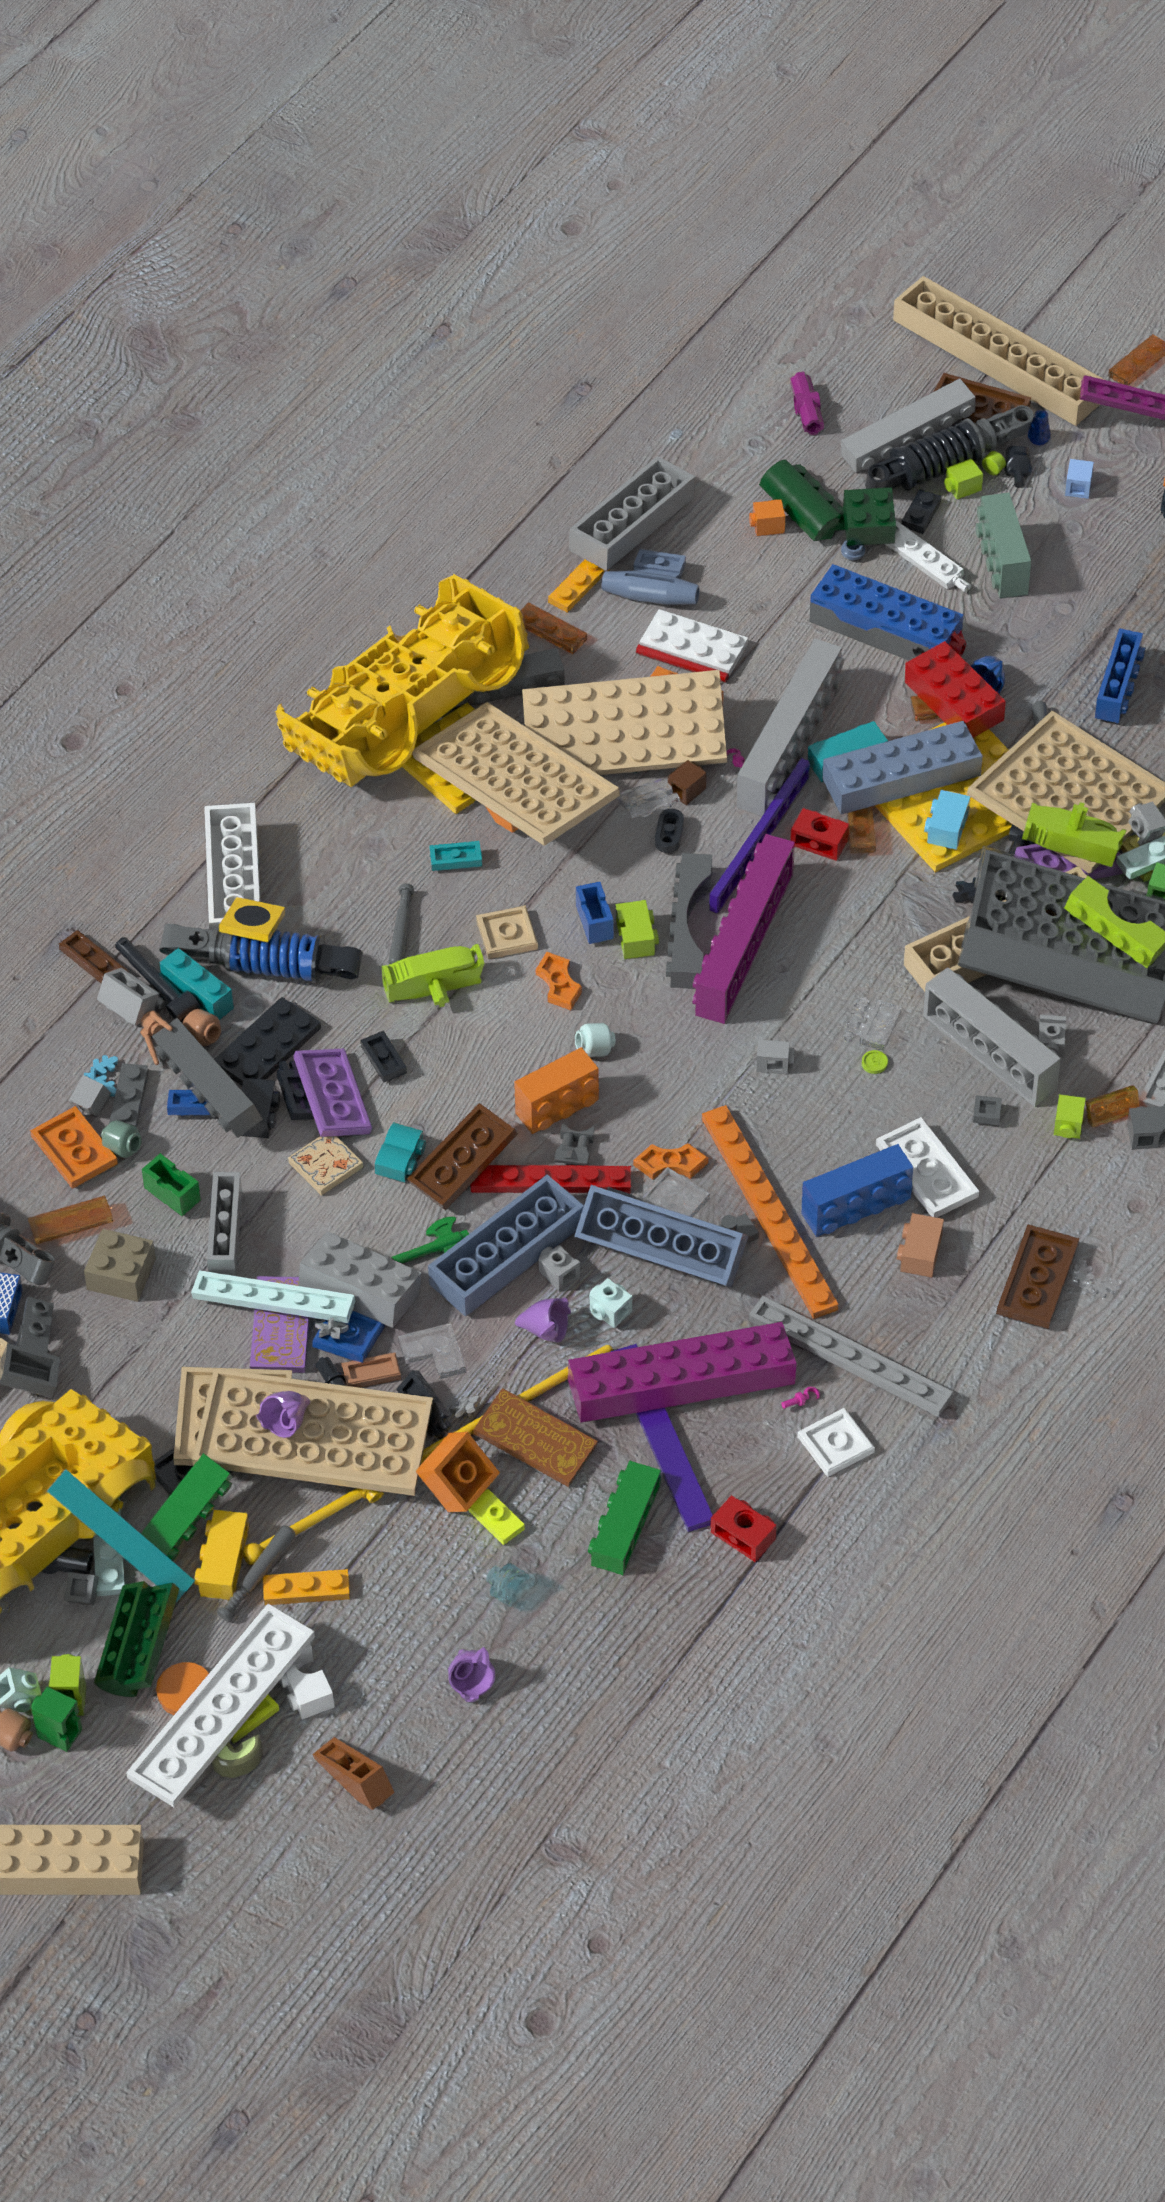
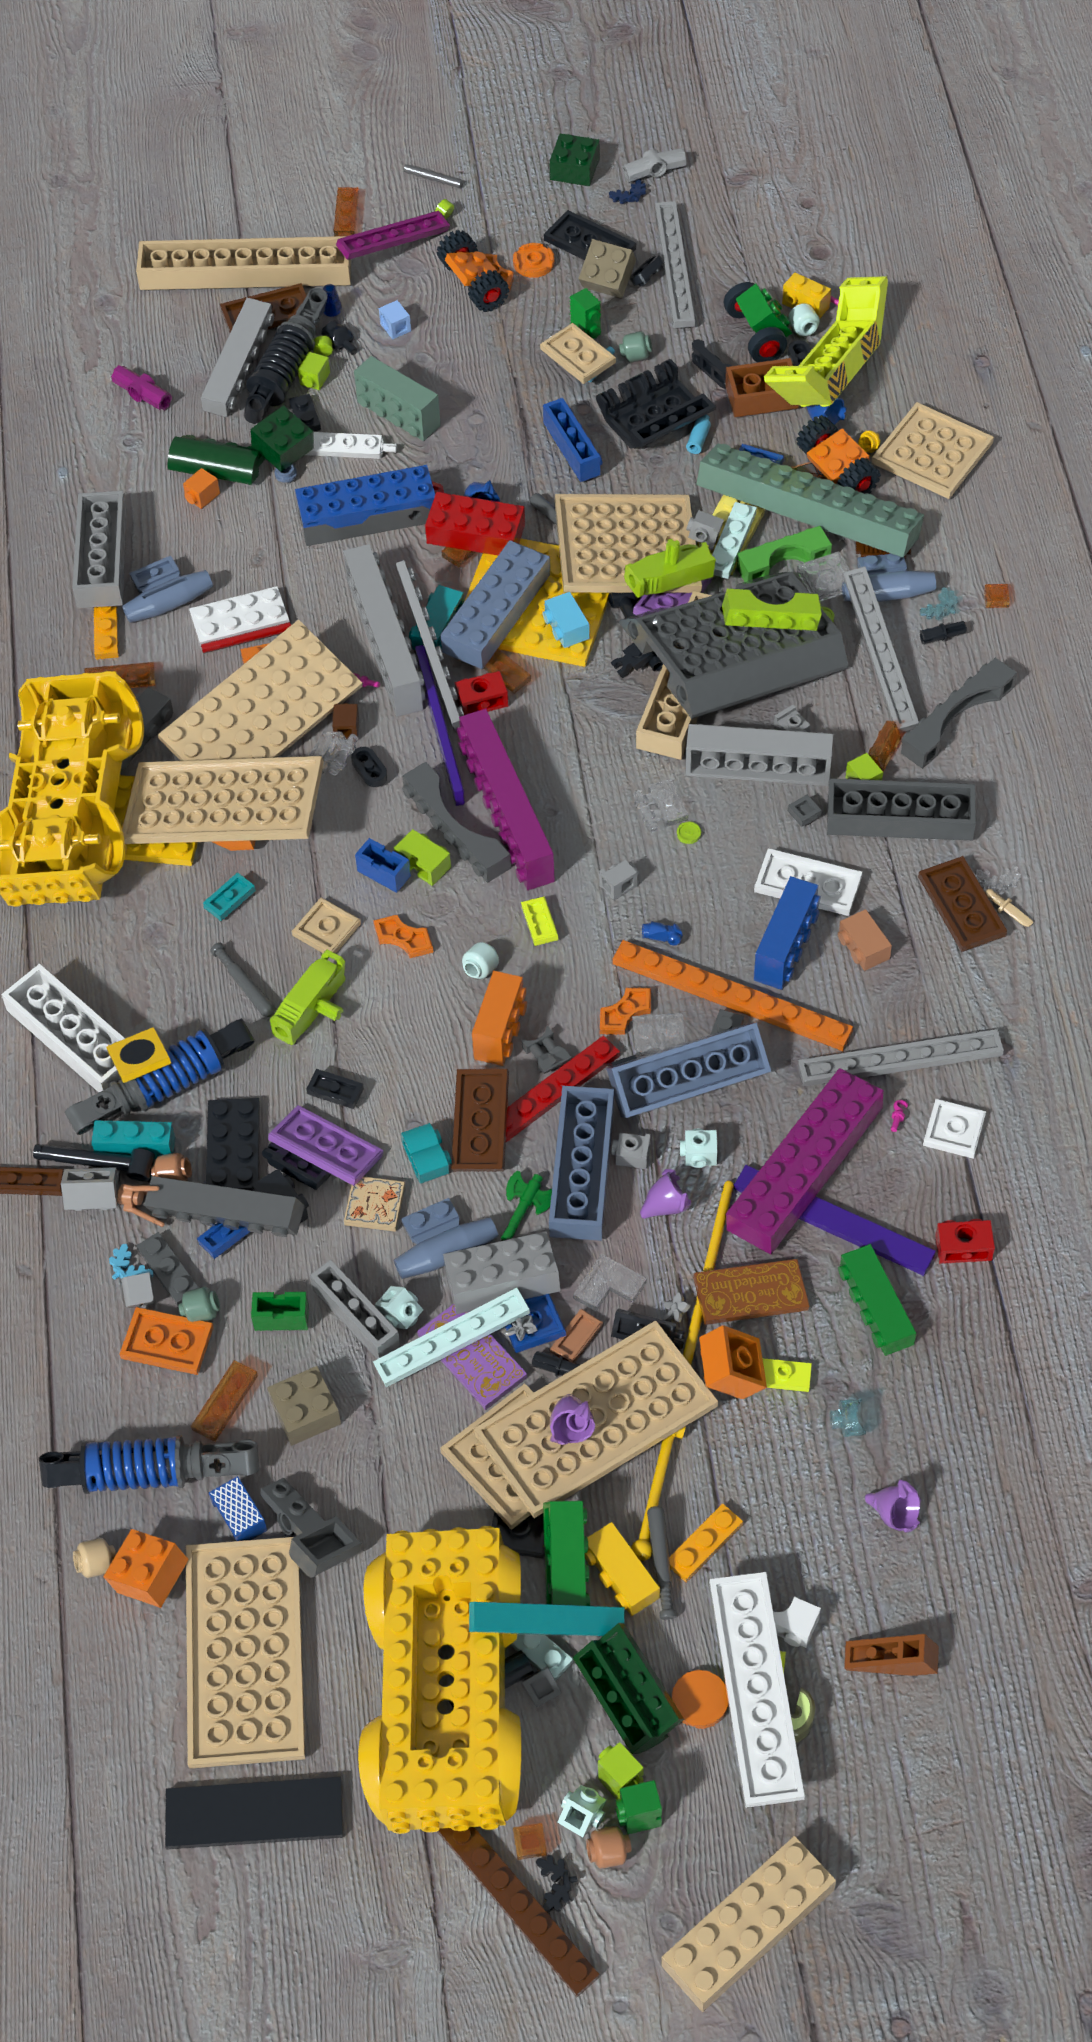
camera: 40 degrees left, 5 degrees up
(254, 1239) = (399, 1307): none -> light aqua brick
(345, 1215) = (439, 1232): none -> sand blue plate
(675, 1043) = (539, 921): none -> neon yellow plate
(764, 1122) = (661, 932): none -> blue arm
(814, 755) = (428, 636): none -> light grey plate
(1065, 1164) = (901, 809): none -> dark grey brick
(1075, 1305) = (1008, 908): none -> tan piece

